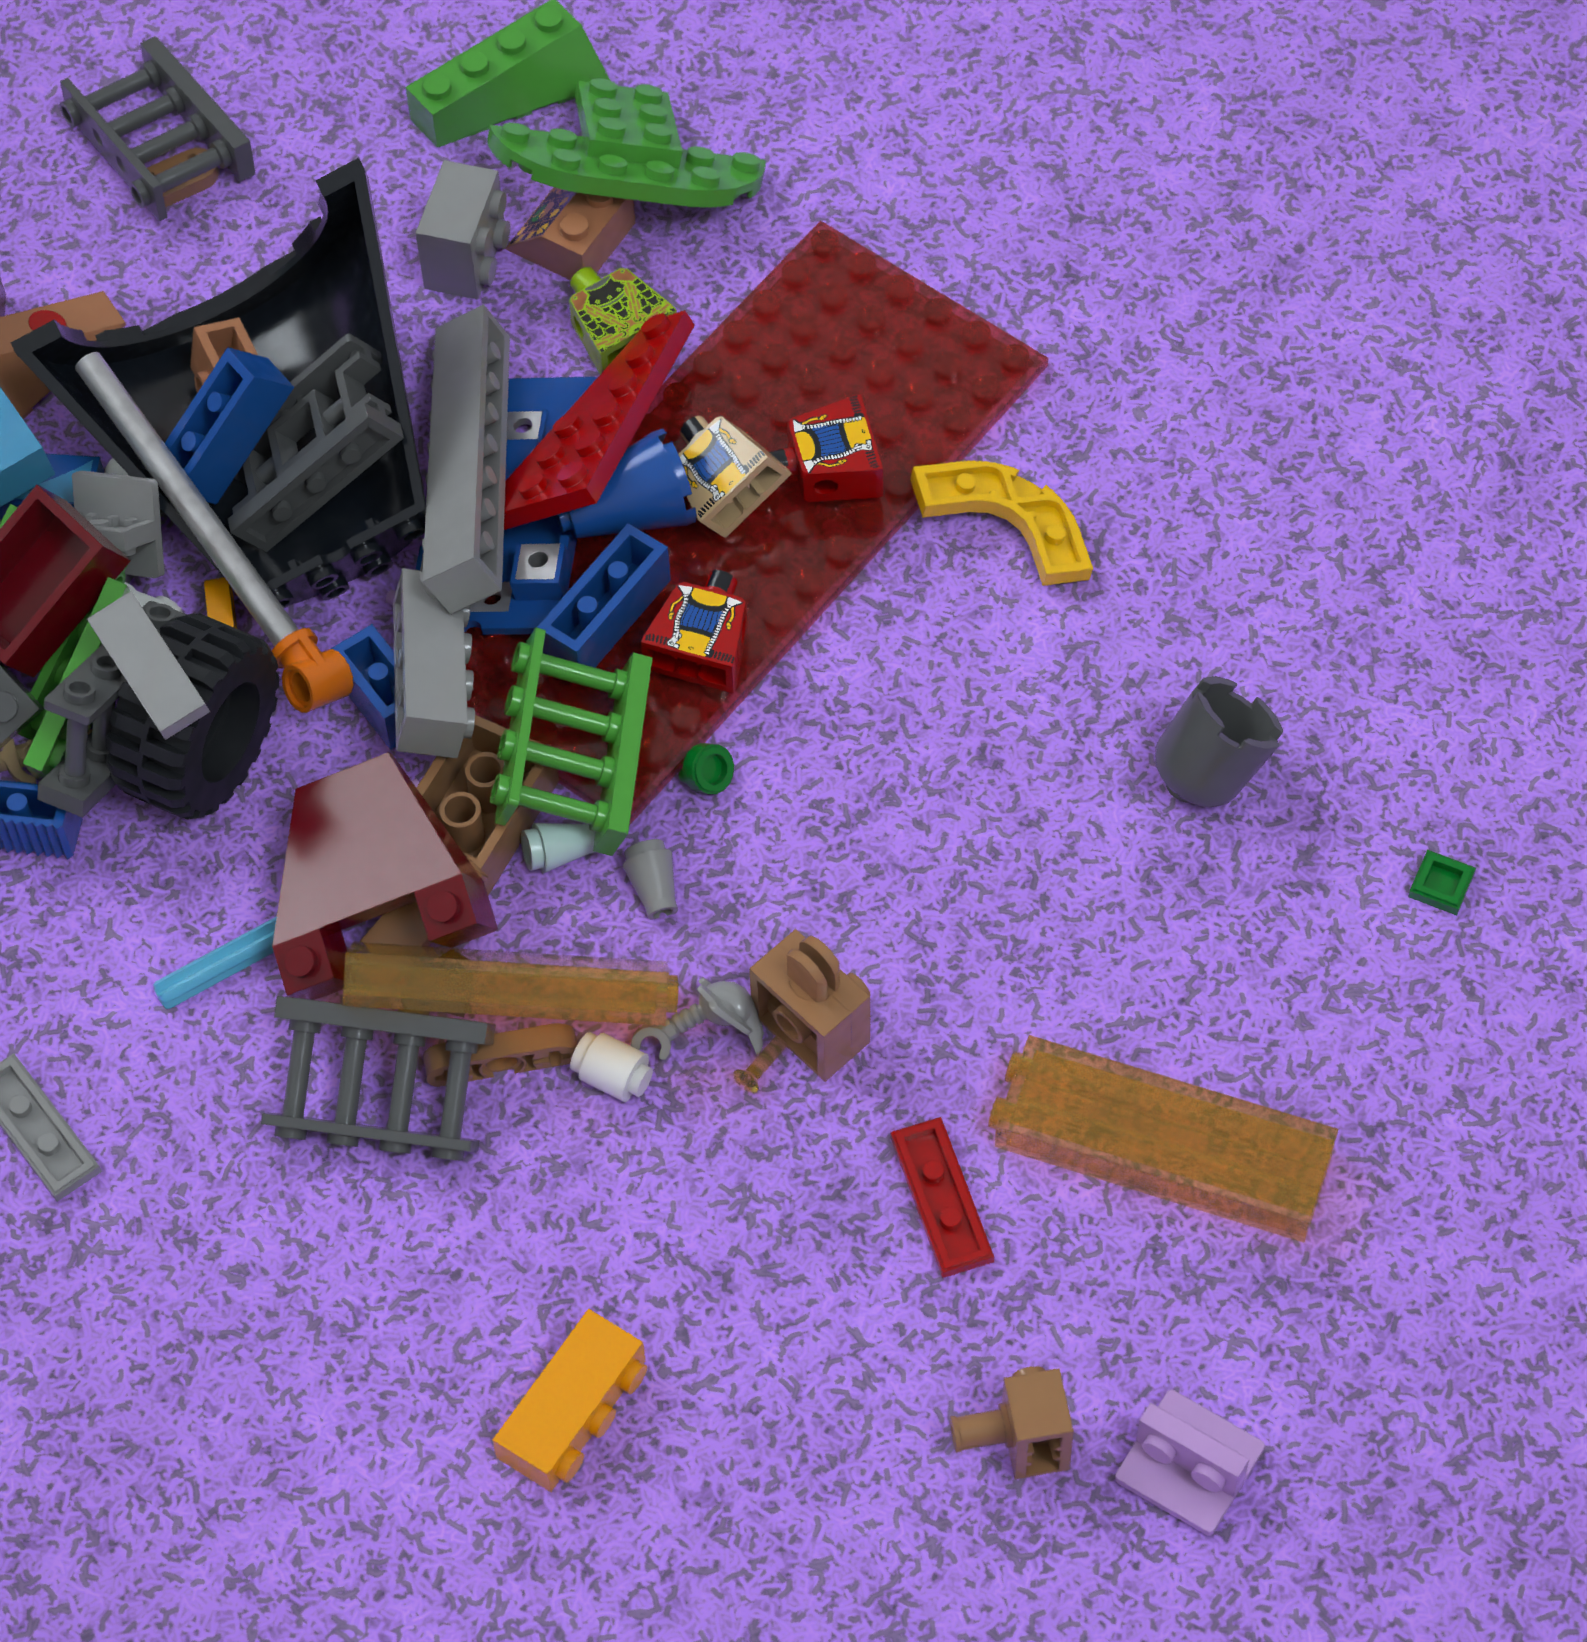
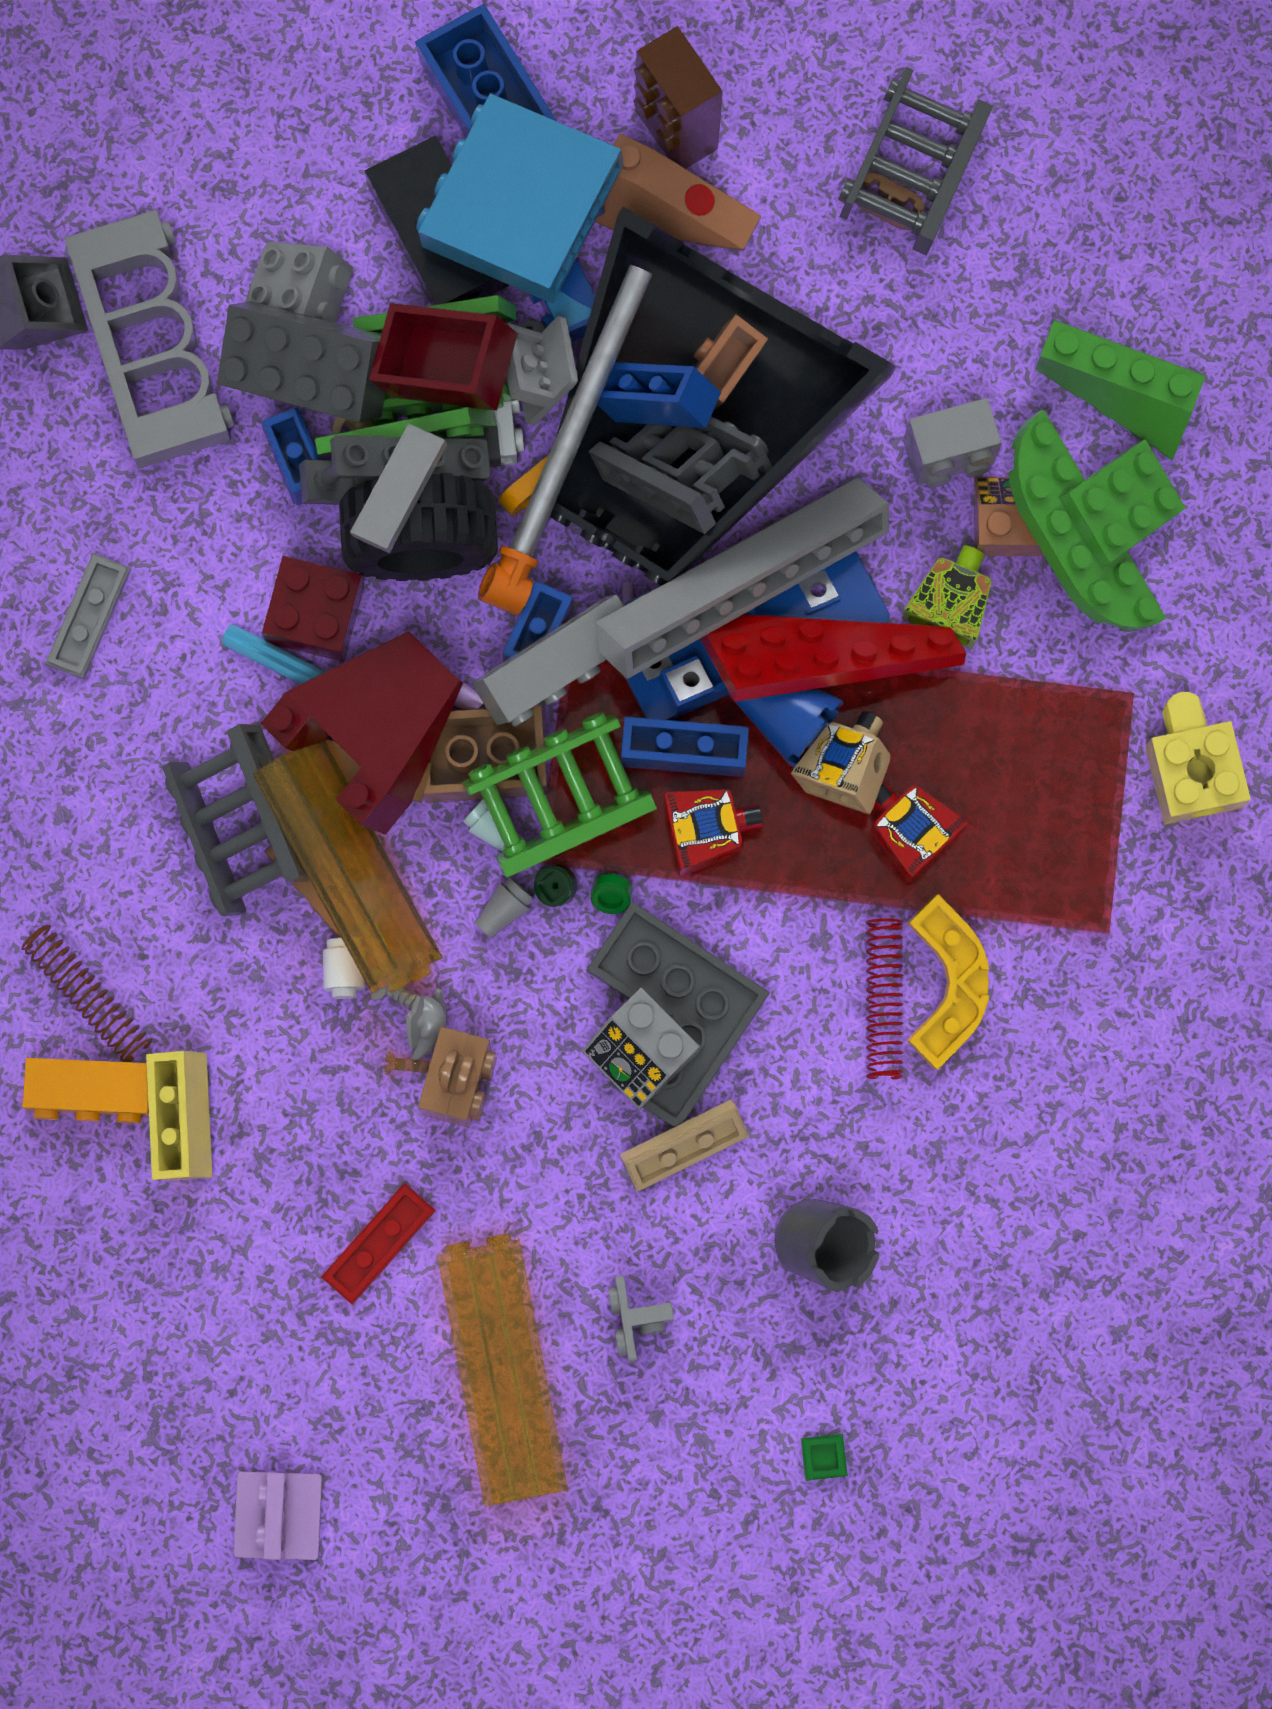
camera: 55 degrees right, 20 degrees up
(198, 888) = (313, 608): none -> dark red brick
(460, 1339) = (31, 938): none -> dark orange piece
(662, 818) = (555, 885): none -> dark green tile
(666, 1314) = (179, 1115): none -> light yellow brick
(881, 753) = (692, 987): none -> dark grey plate
(896, 809) = (640, 1049): none -> light grey slope
(908, 202) = (1195, 764): none -> light yellow brick
(1024, 838) = (684, 1145): none -> tan tile
(1029, 1421) = (232, 1397): medium nougat brick -> none
(1065, 616) = (897, 1074): none -> red piece
(1186, 970) = (649, 1319): none -> light grey bracket

